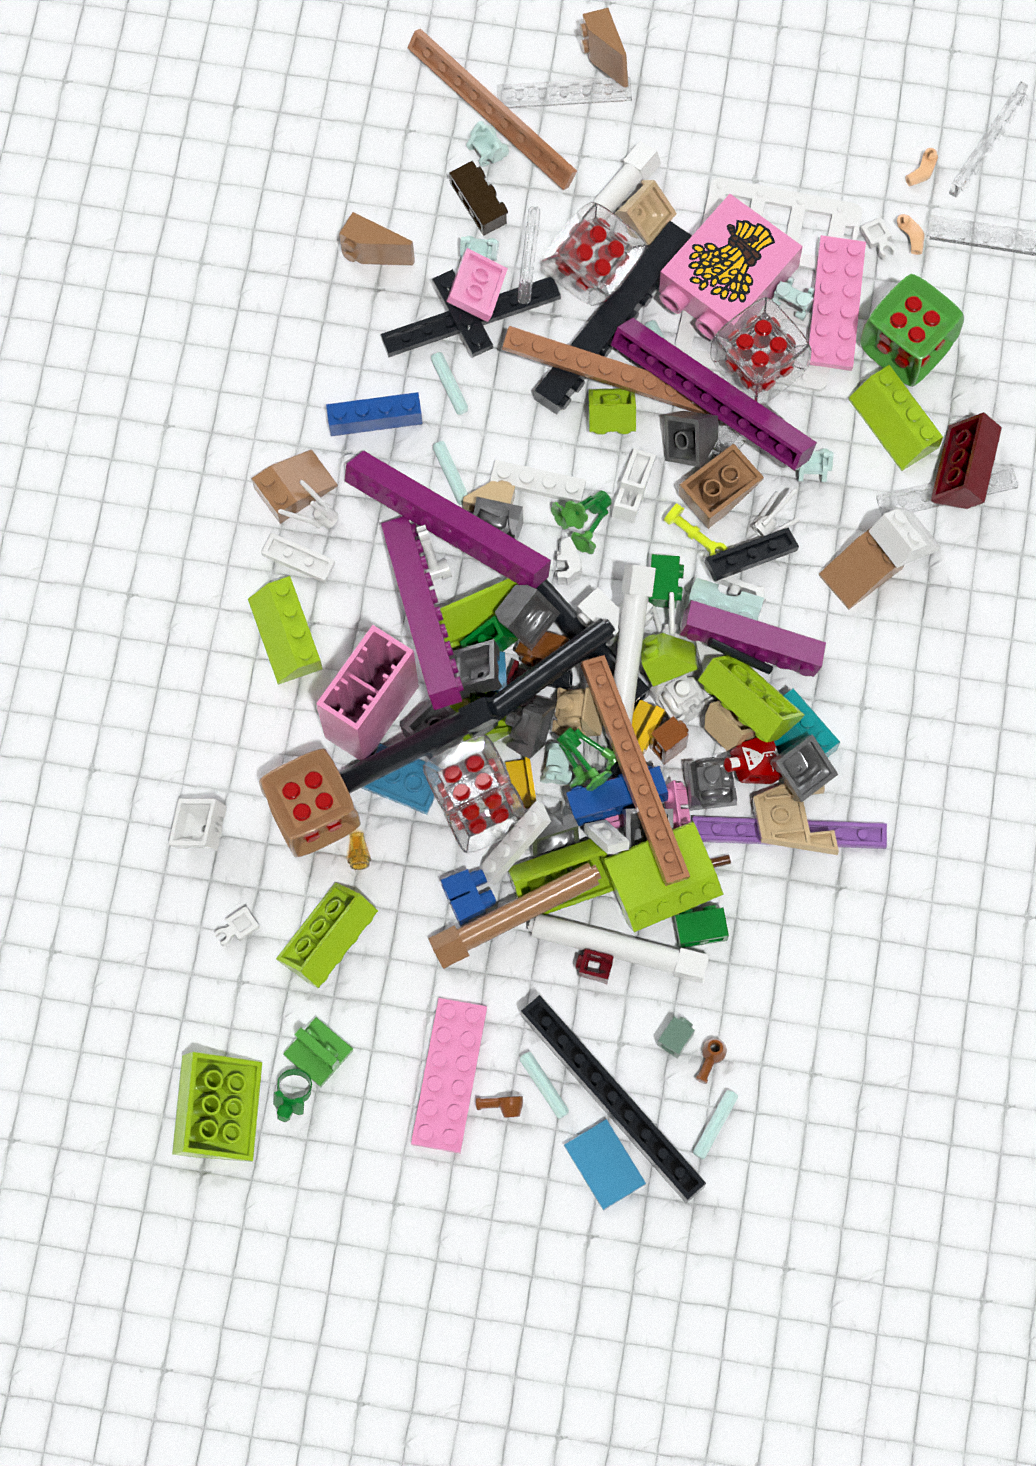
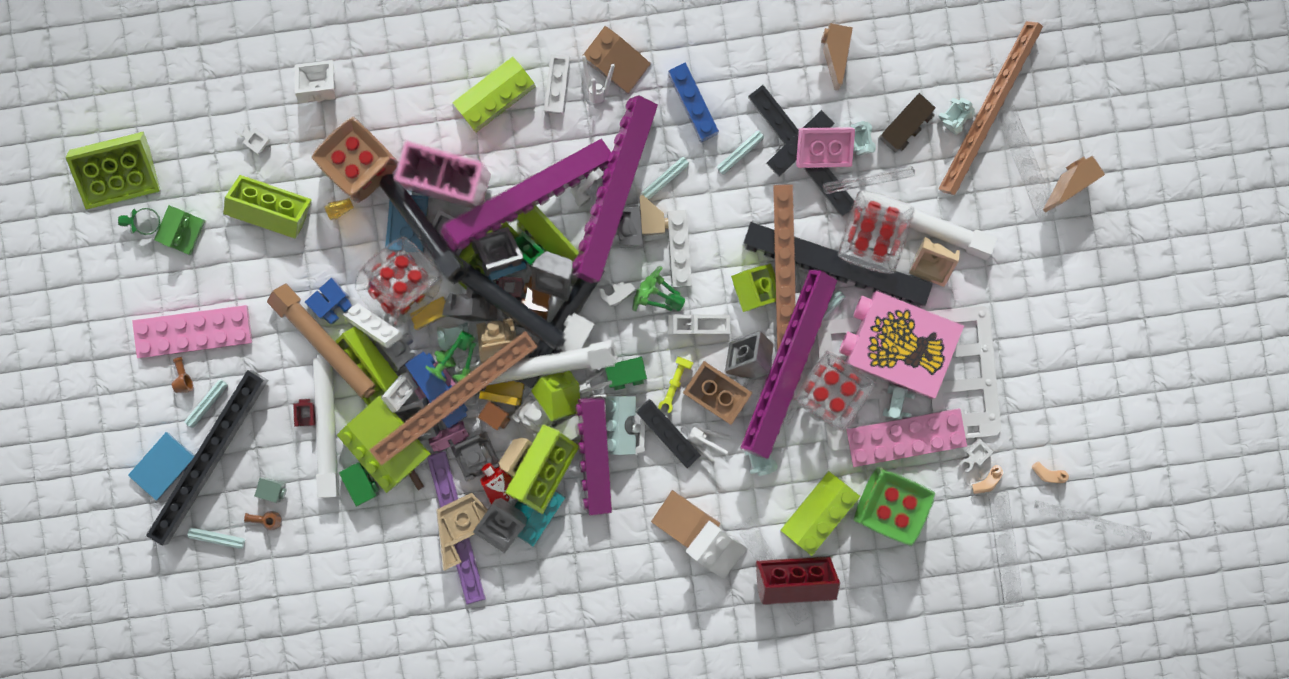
camera: 75 degrees right, 15 degrees up
(740, 656) = (575, 450): black bar -> none

